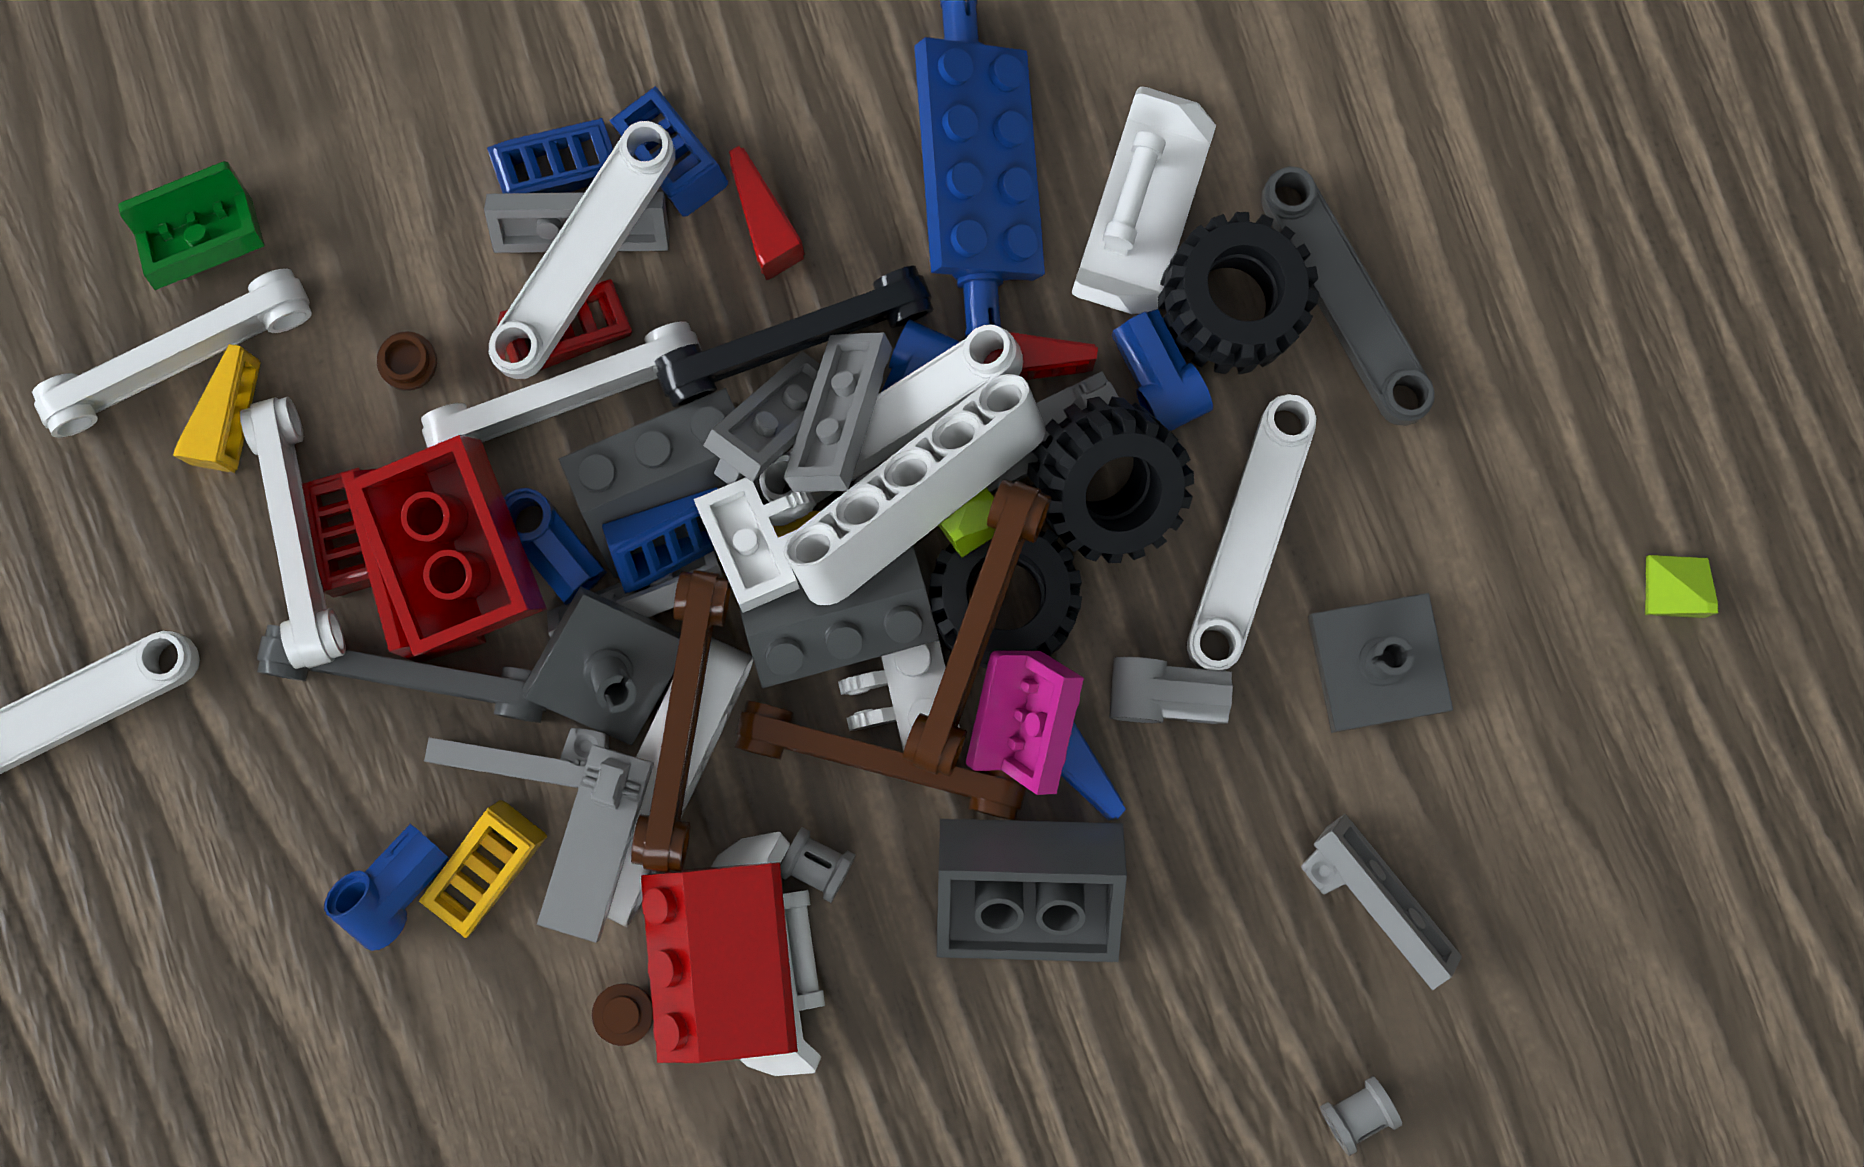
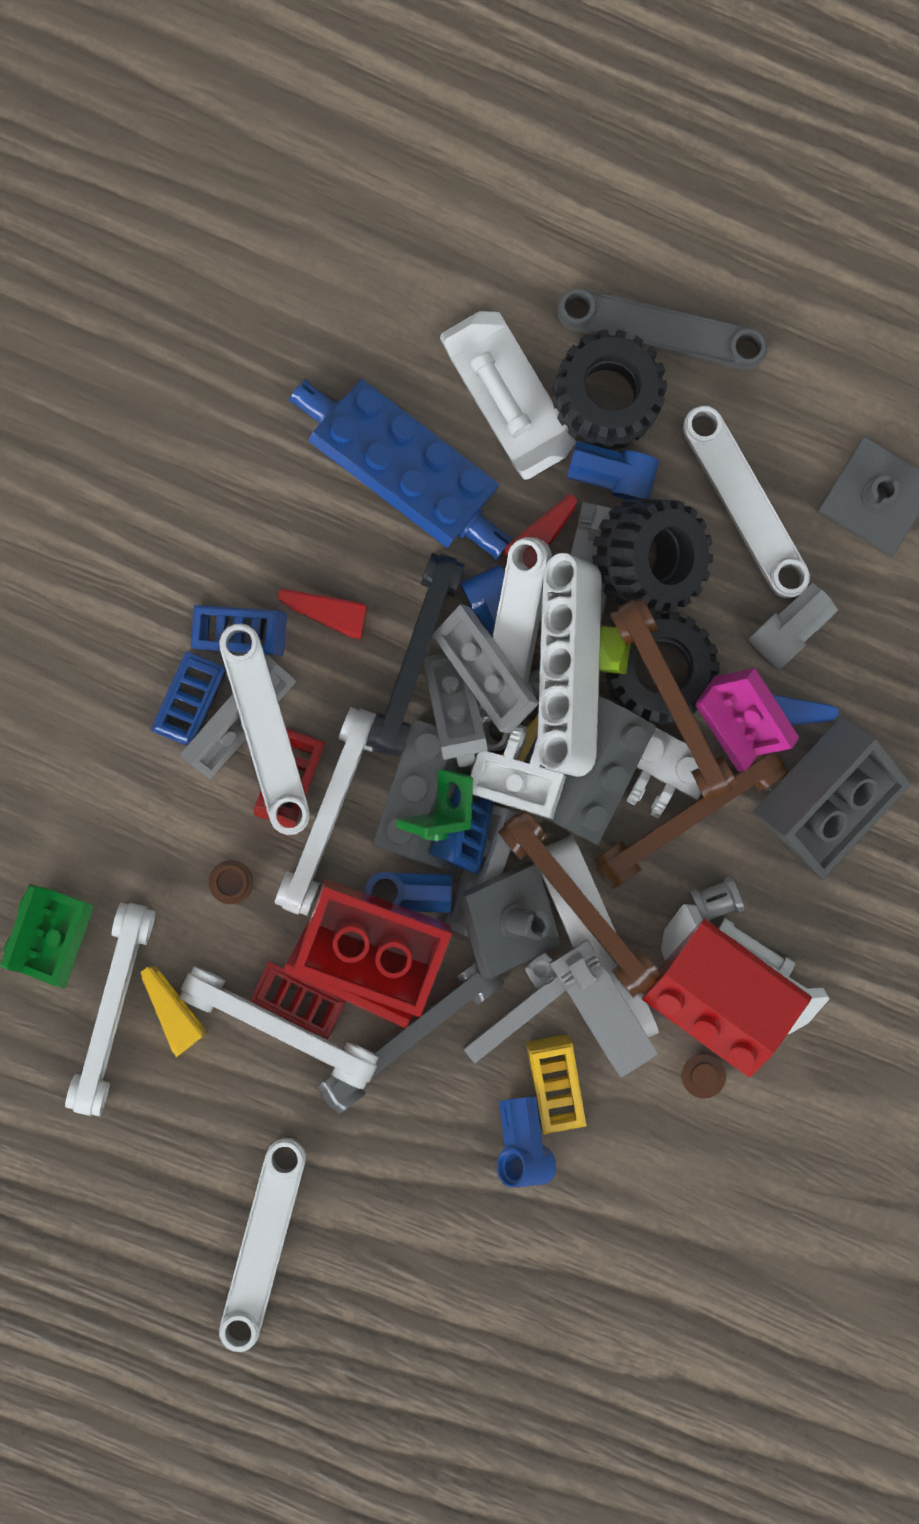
camera: 50 degrees left, 5 degrees up
(652, 511) = (447, 817): none -> green bracket

